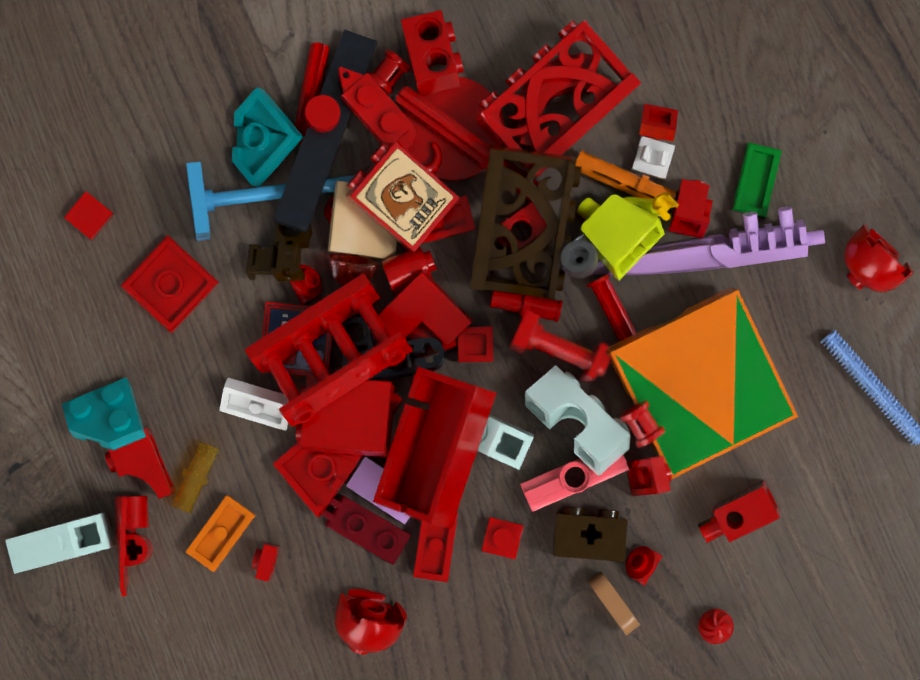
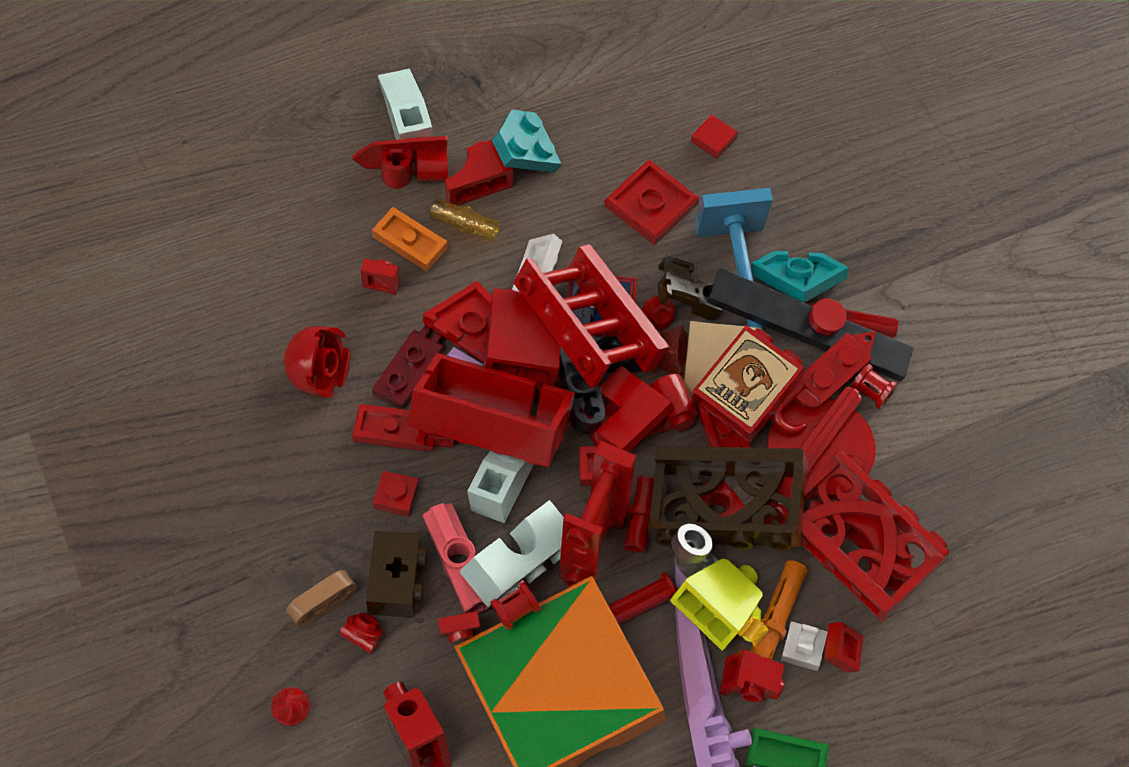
camera: 85 degrees right, 25 degrees down
(426, 53) = (897, 420): red brick -> none

